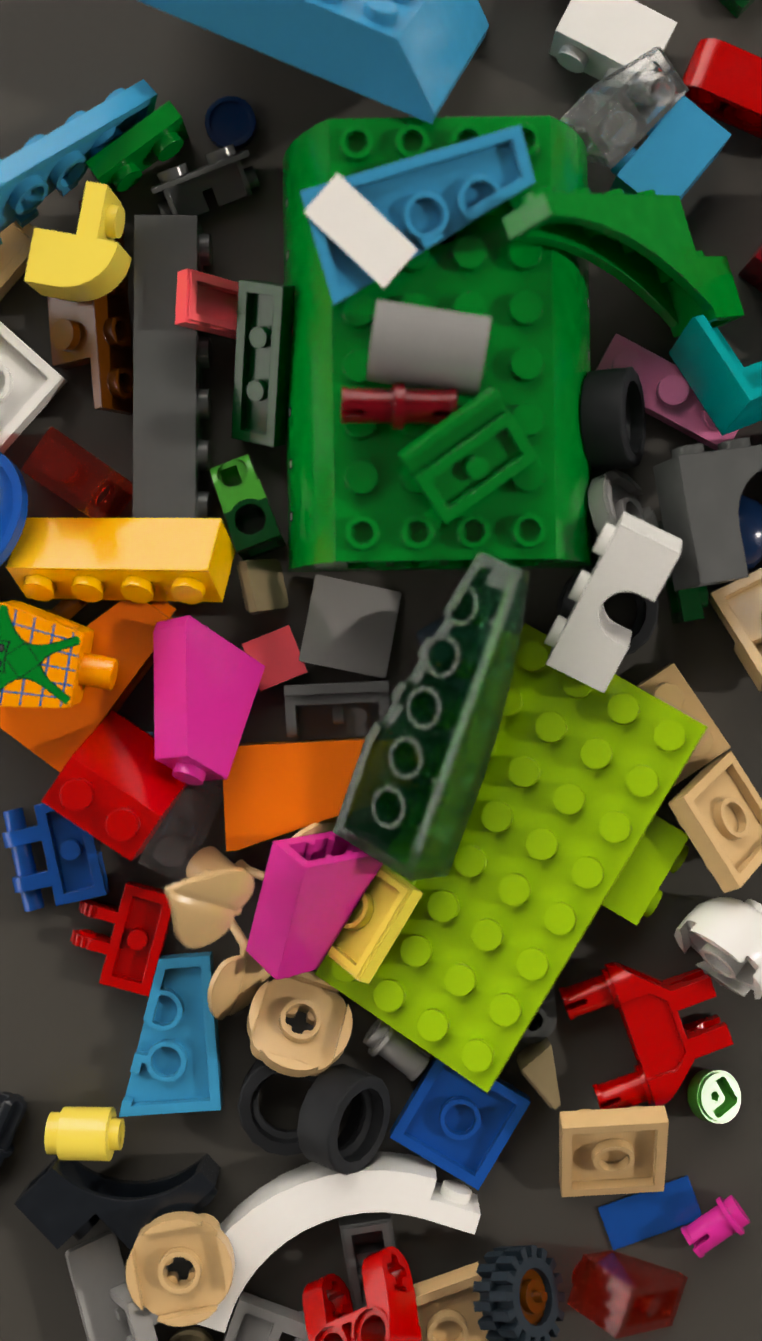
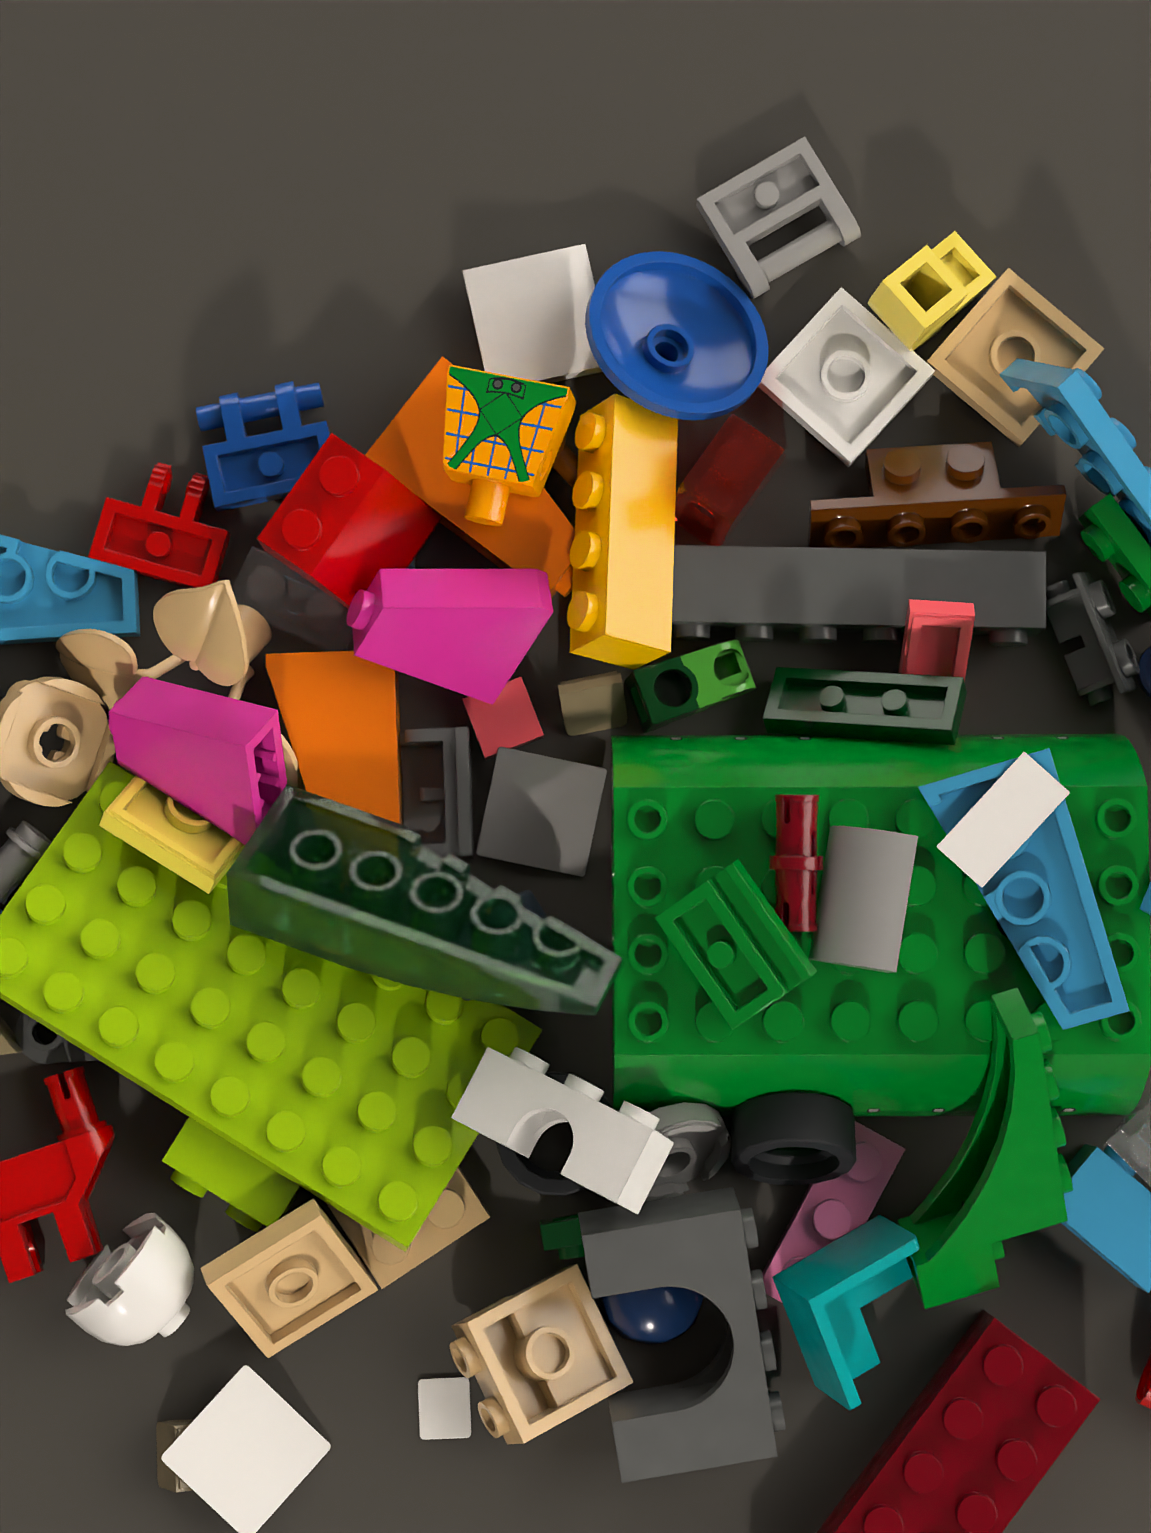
camera: 85 degrees right, 5 degrees down
(85, 263) = (981, 492): light yellow brick -> none

